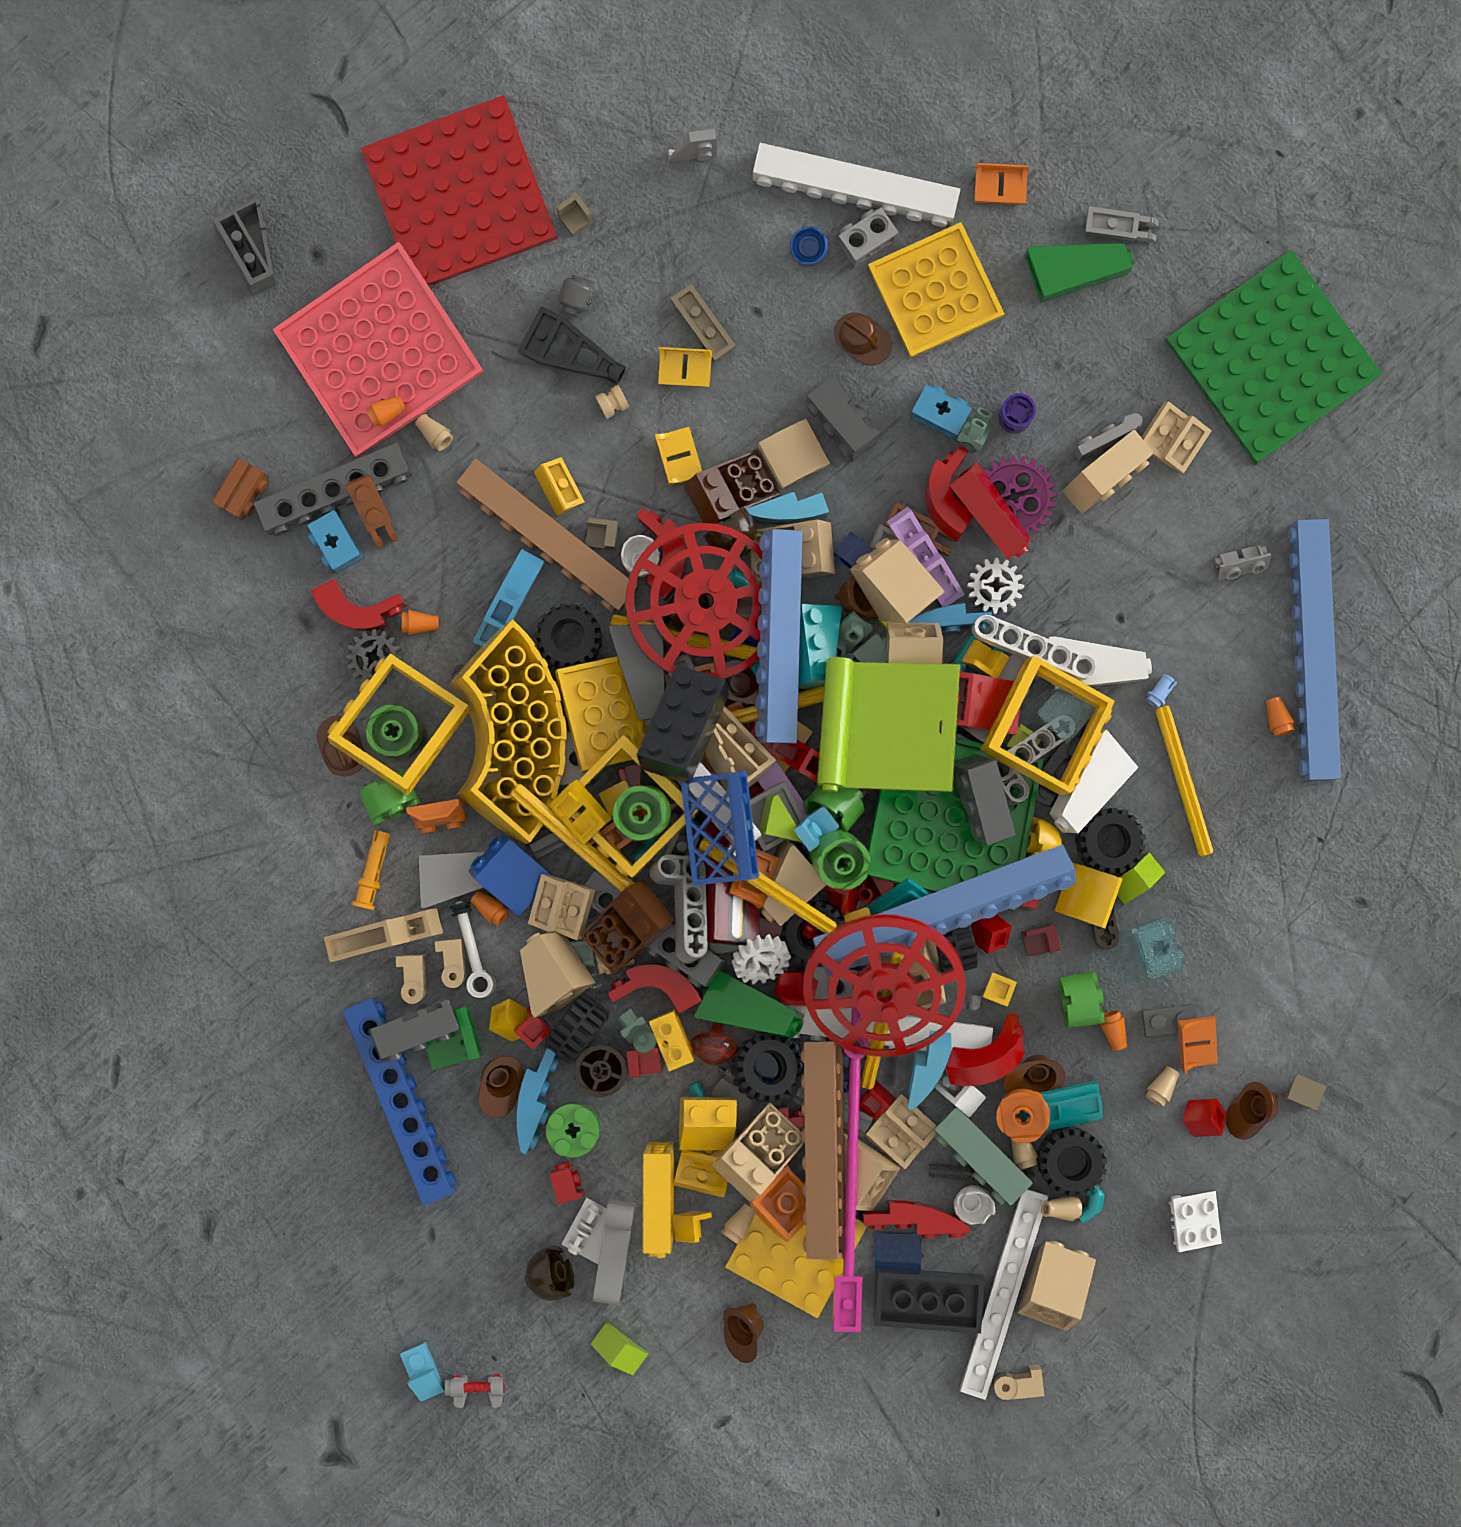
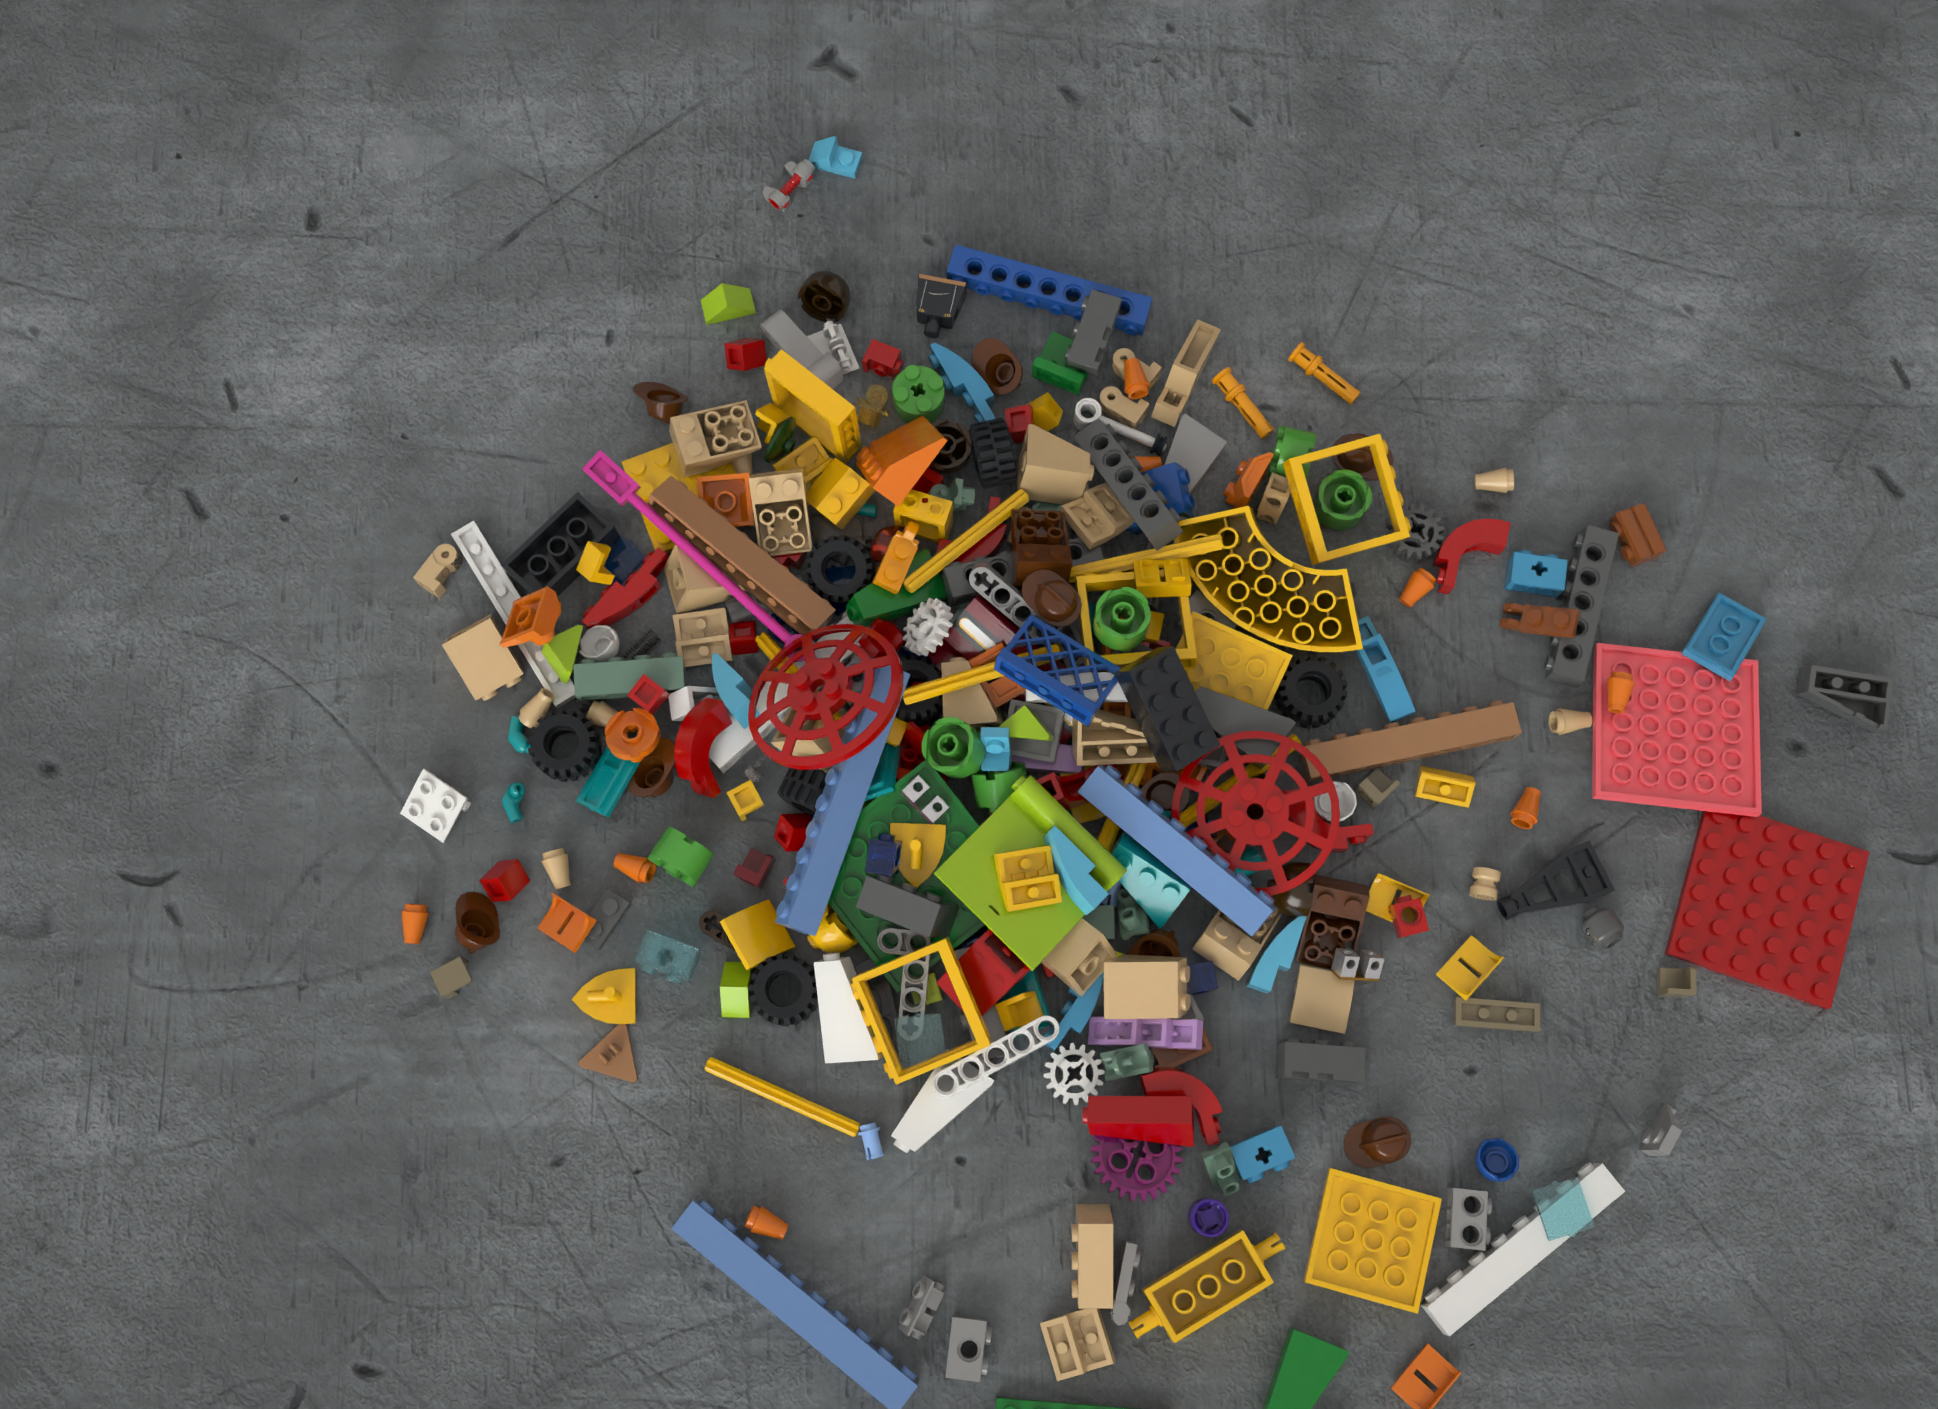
camera: 125 degrees right, 10 degrees down
(273, 367) = (1724, 636): none -> dark azure tile
(280, 628) = (1496, 480): none -> tan cone
(296, 794) = (1314, 366): none -> light orange pin
(425, 967) = (1135, 380): none -> orange cone
(436, 783) = (1274, 499): none -> tan leg
(482, 1179) = (939, 303): none -> black torso
(503, 960) = (1128, 484): none -> dark grey brick
(530, 413) = (1526, 810): none -> orange cone
(613, 1156) = (873, 406): none -> clear yellow hips
(646, 1092) = (900, 458): none -> orange slope
(649, 1297) = (745, 354): none -> red panel
(665, 881) = (1051, 597): none -> reddish brown piece
(666, 989) = (965, 541): none -> yellow axle
(689, 426) = (1403, 928): none -> red brick
(700, 1200) = (781, 441): none -> dark green dish
(726, 1027) = (897, 559): none -> light orange hinge
(742, 1257) = (713, 437): none -> tan slope
(755, 447) = (1350, 966): none -> flat silver piece
(808, 175) = (1562, 1208): none -> clear light blue piece
(862, 694) = (1073, 872): none -> medium azure slope
(896, 722) = (1027, 878): none -> yellow slope
(903, 838) = (912, 795): none -> flat silver piece
(921, 1262) = (593, 561): none -> yellow panel
(934, 827) = (920, 849): none -> yellow shield
(957, 552) = (1128, 1061): none -> sand green hips
(961, 845) = (883, 855): none -> clear blue brick
(986, 1129) = (648, 694): none -> red panel
(1003, 1268) = (532, 619): none -> orange slope
(1005, 1225) = (562, 652): none -> lime slope
(1064, 378) = (1207, 1285): none -> yellow brick
(1143, 1166) = (512, 800): none -> teal arm
(1219, 966) = (610, 997): none -> yellow shield
(1257, 502) = (963, 1366): none -> light grey brick
(1257, 927) = (612, 1056): none -> medium nougat piece
(1290, 1157) = (414, 922): none -> orange cone

